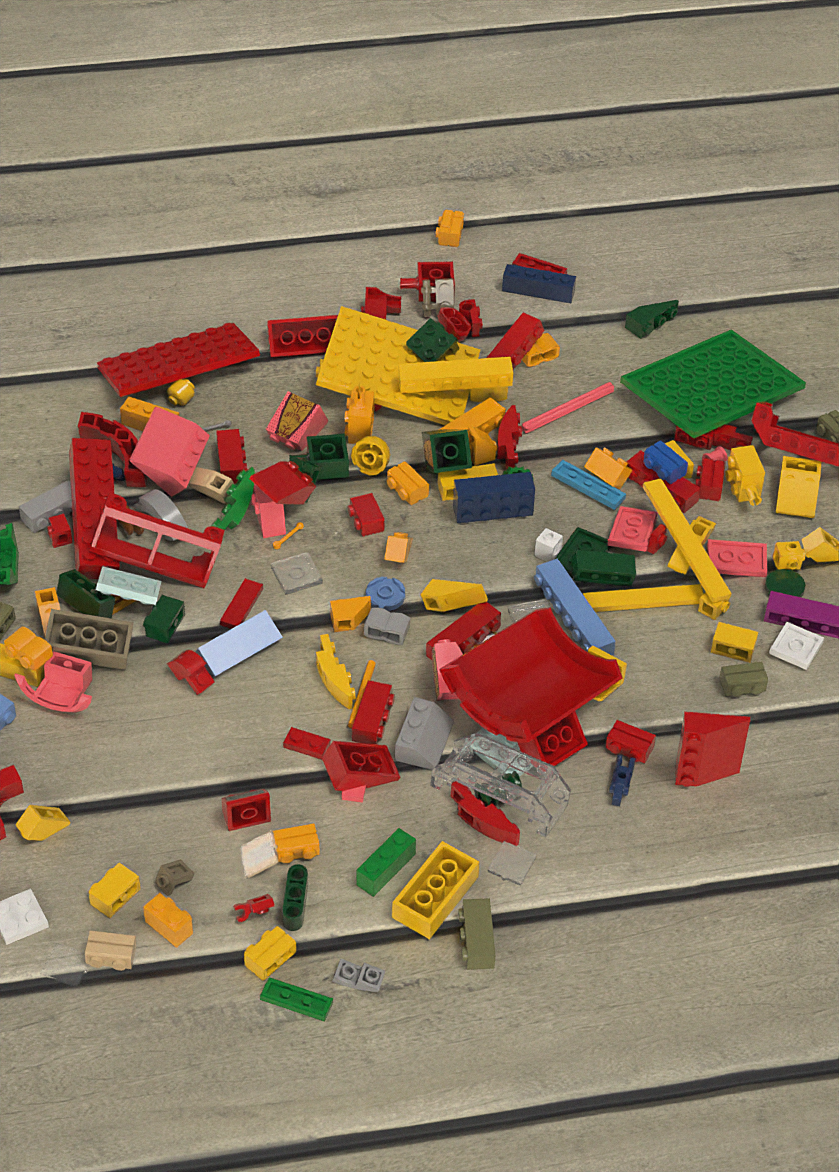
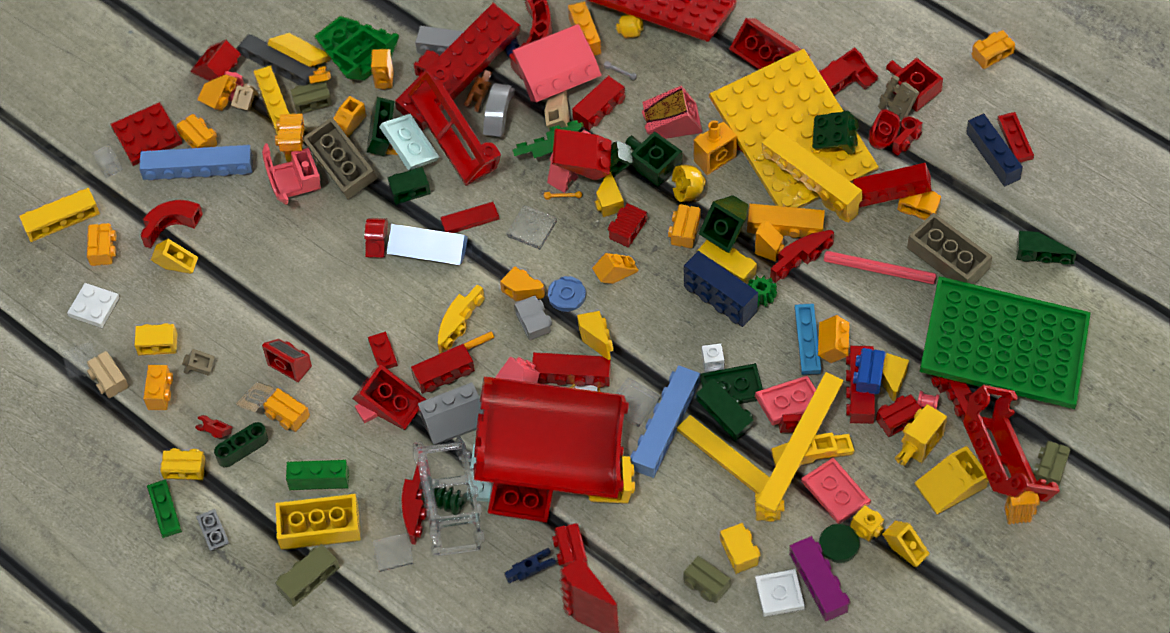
camera: 55 degrees right, 10 degrees up
(30, 557) = (382, 68): none -> light orange brick
(327, 507) = (608, 197): none -> yellow slope
(600, 360) = (949, 251): none -> dark tan brick

